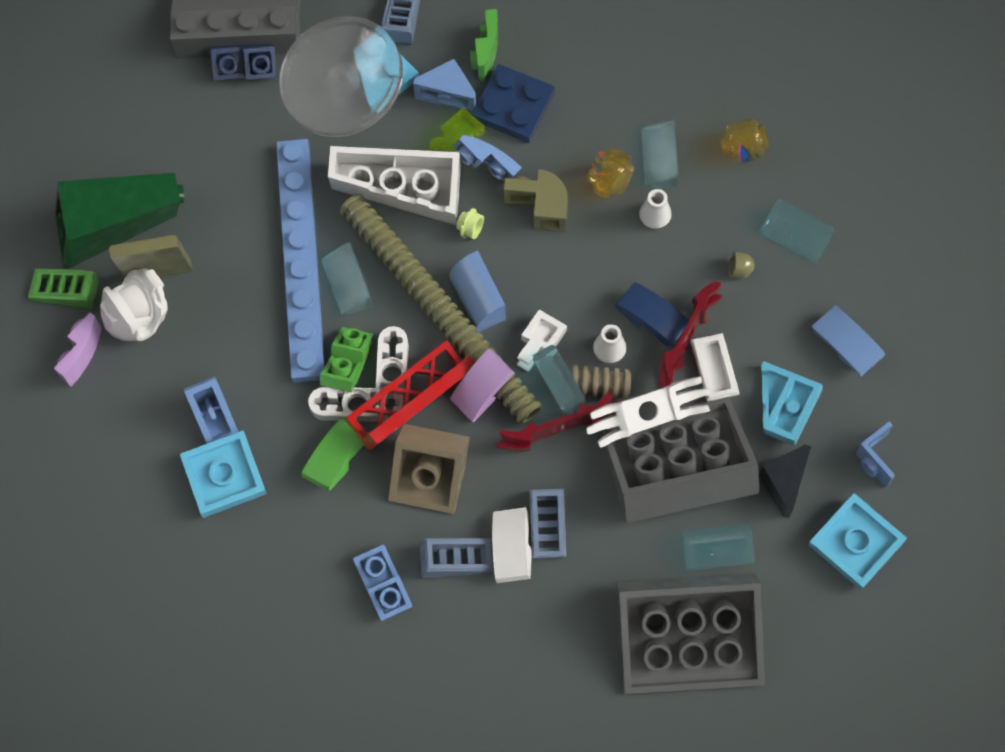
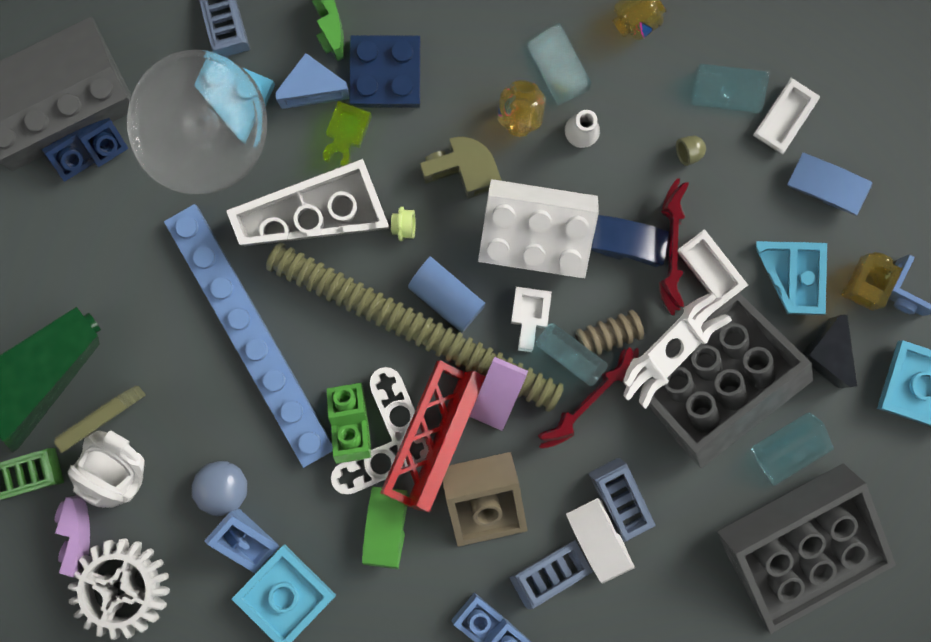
camera: 30 degrees left, 15 degrees up
(71, 427) = (105, 616): none -> white gear
(215, 360) = (219, 488): none -> sand blue hair
(346, 280) = (307, 338): clear light blue slope -> none
(476, 151) = (380, 148): medium blue slope -> none
(577, 267) = (538, 228): none -> white brick
(610, 344) = (595, 298): white cone -> none
(836, 273) = (786, 116): none -> white tile
(852, 421) = (884, 275): none -> clear yellow brick

